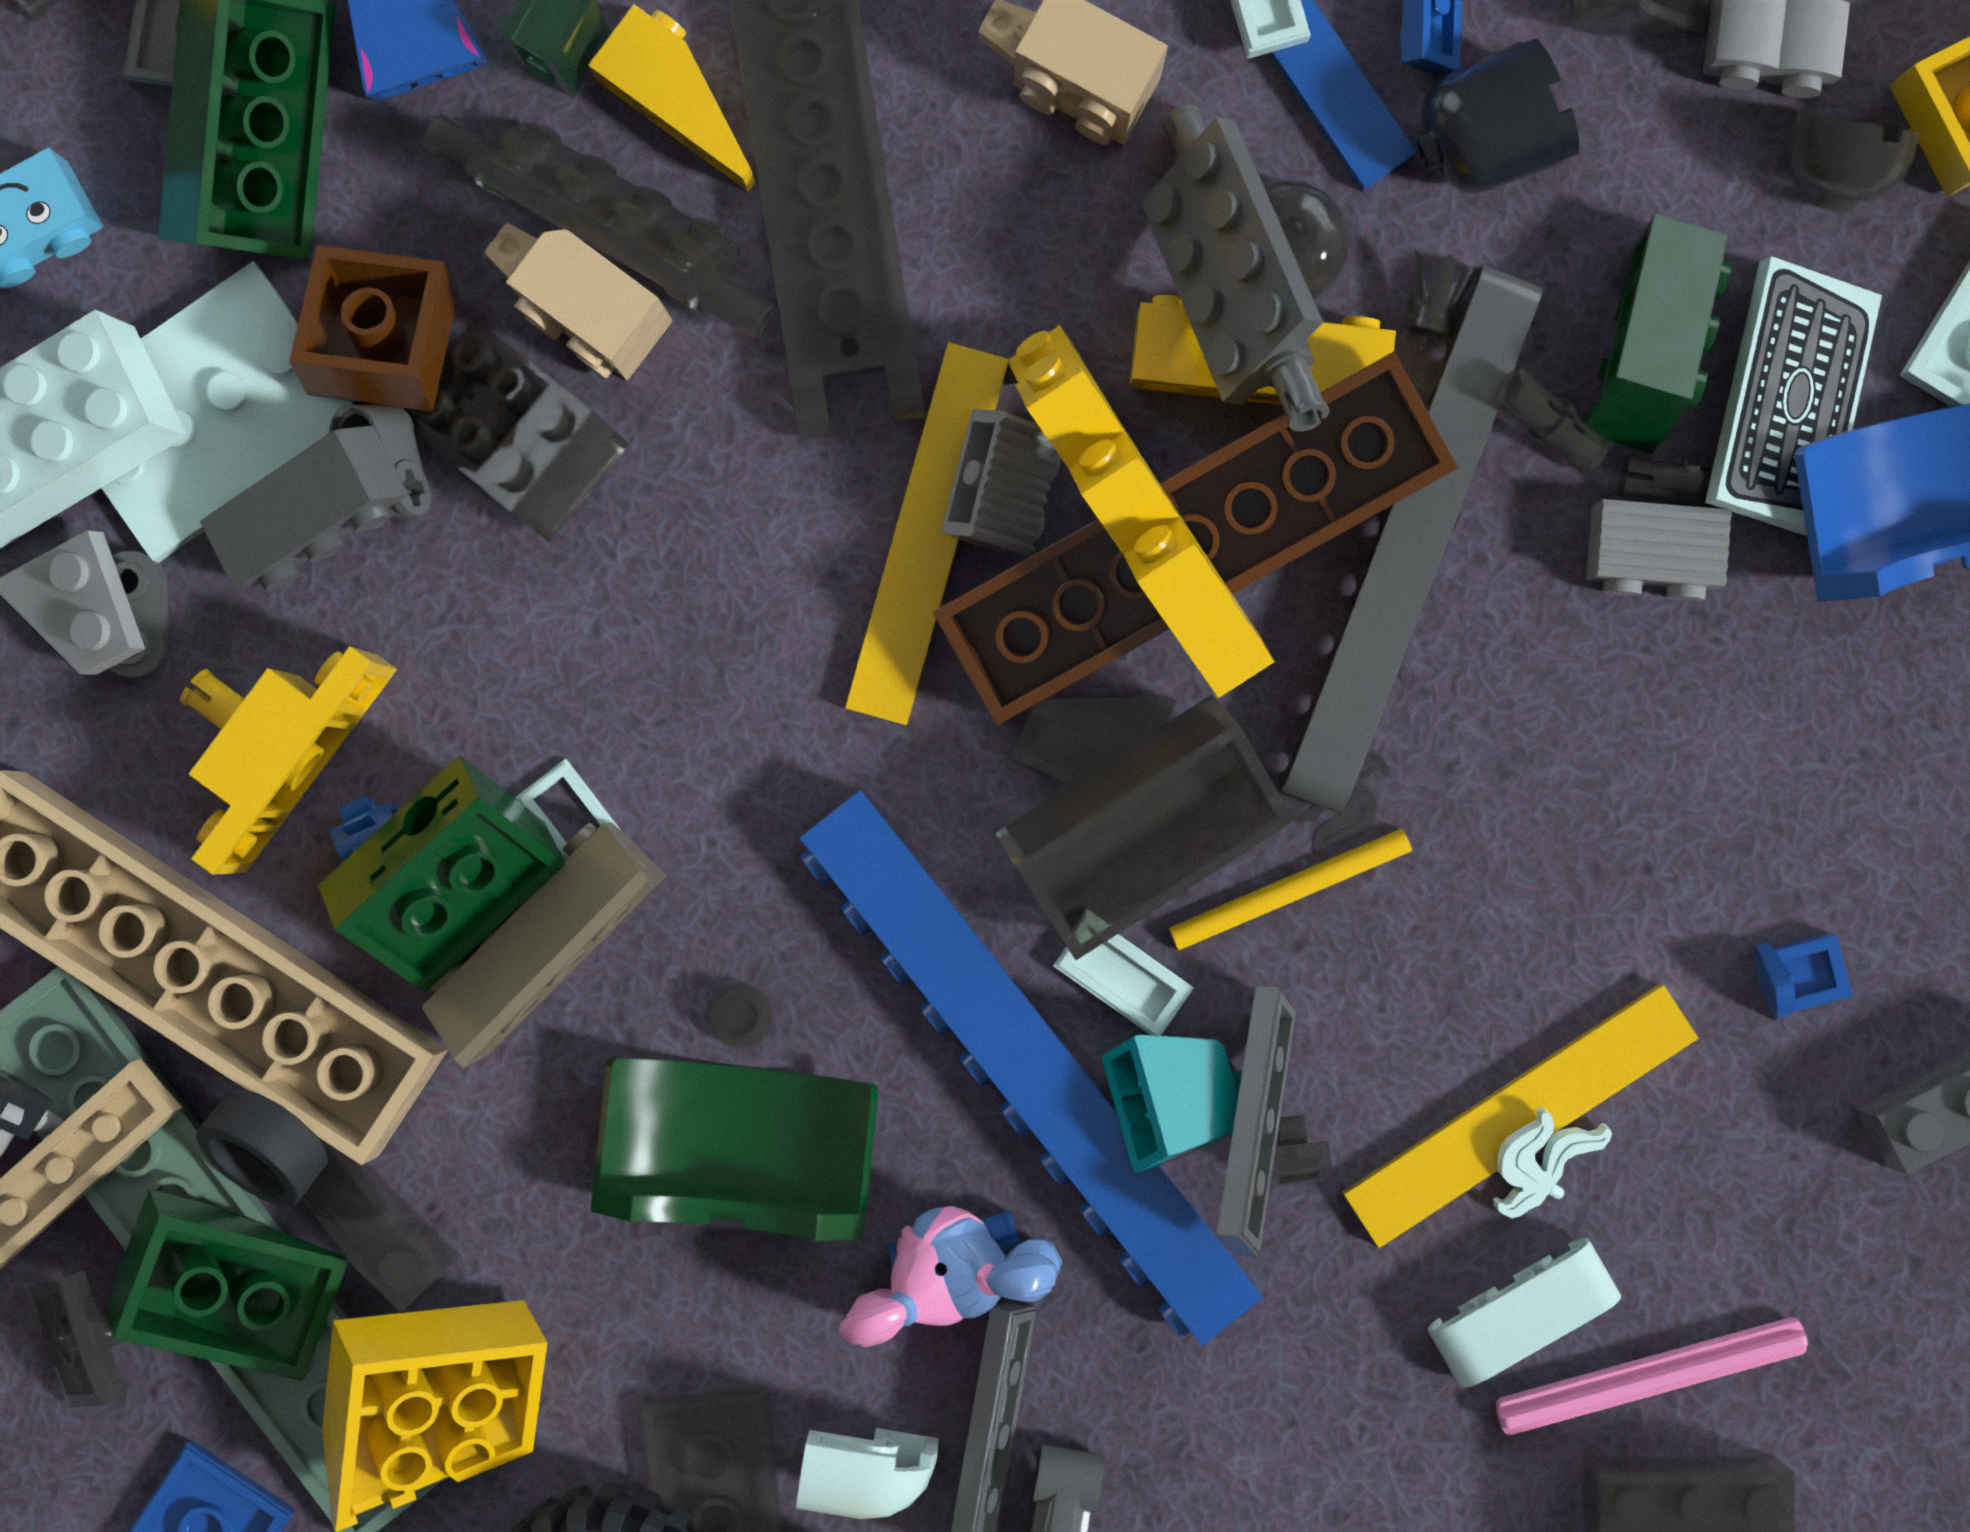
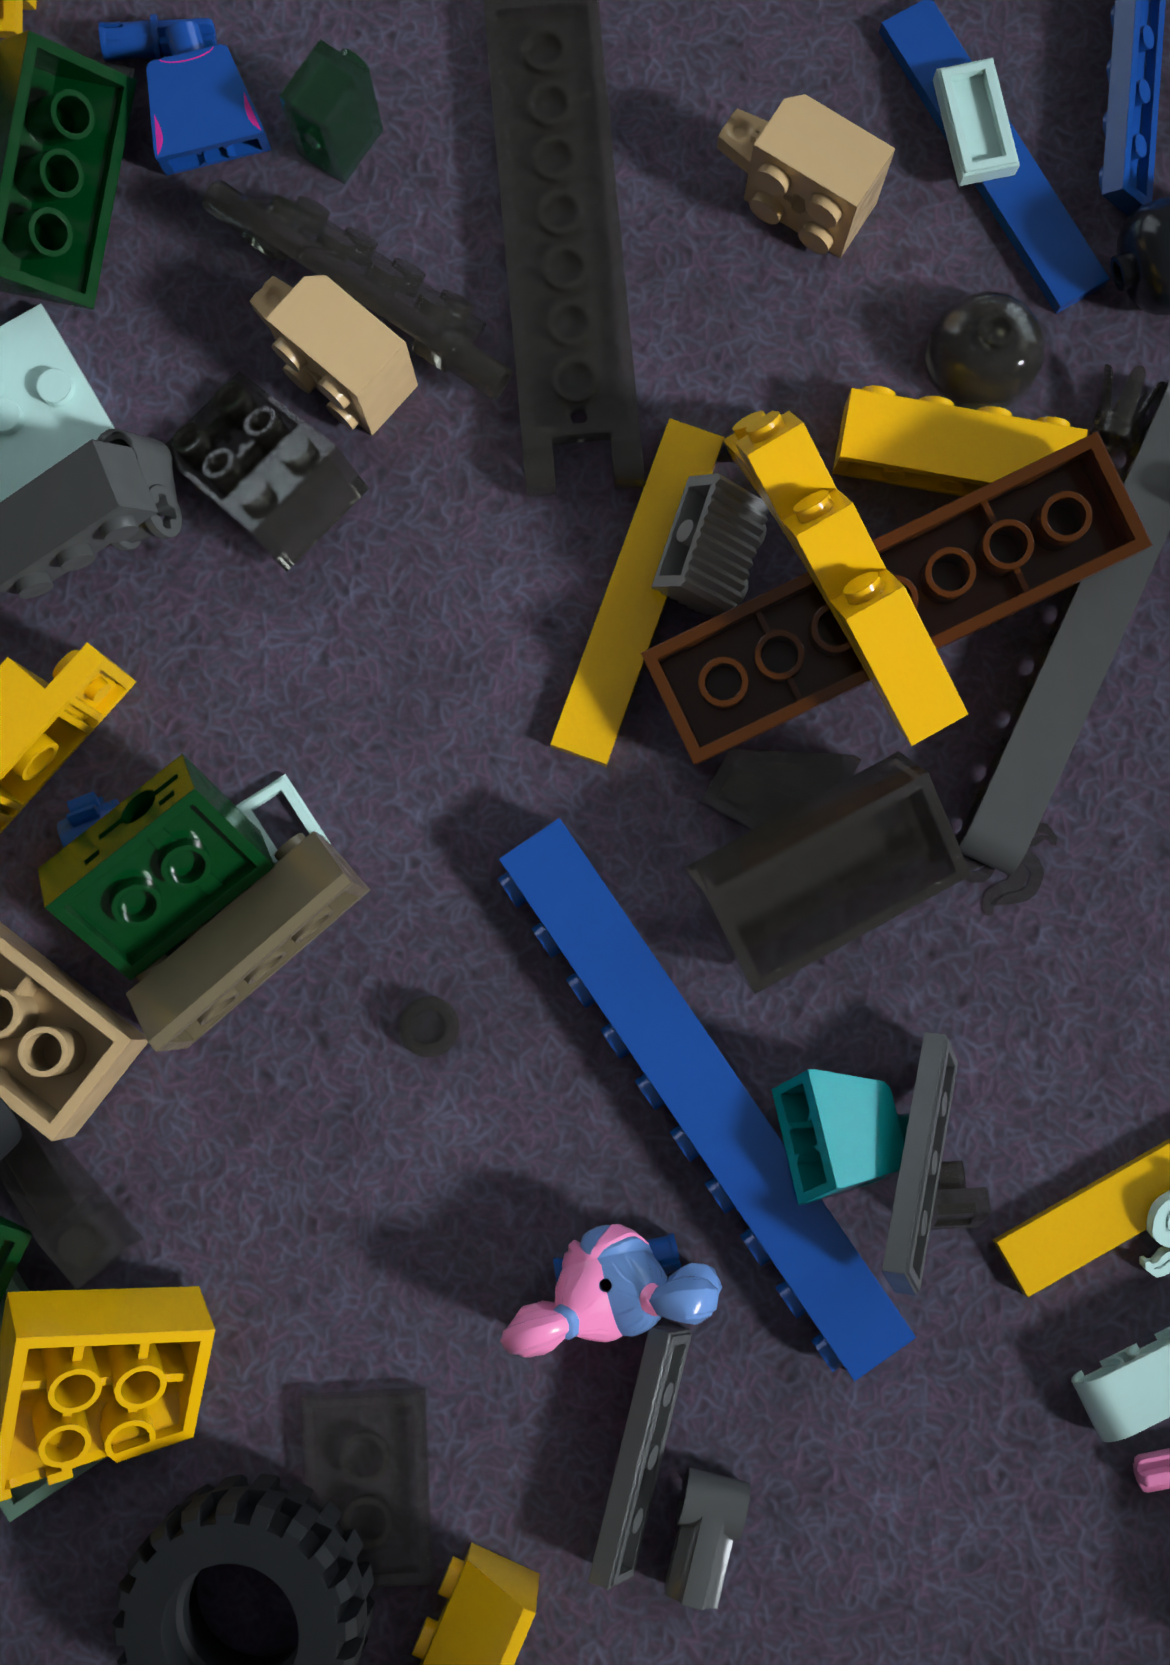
camera: 10 degrees right, 5 degrees down
(374, 328) = (142, 363): reddish brown brick -> none
(658, 77) = (422, 166): yellow slope -> none
(734, 1146) = (413, 1153): dark green panel -> none
(865, 1475) = (514, 1486): light aqua brick -> none
(1128, 983) = (799, 1021): light aqua tile -> none
(1235, 268) = (947, 357): dark grey plate -> none
(1290, 889) = (958, 944): yellow piece -> none

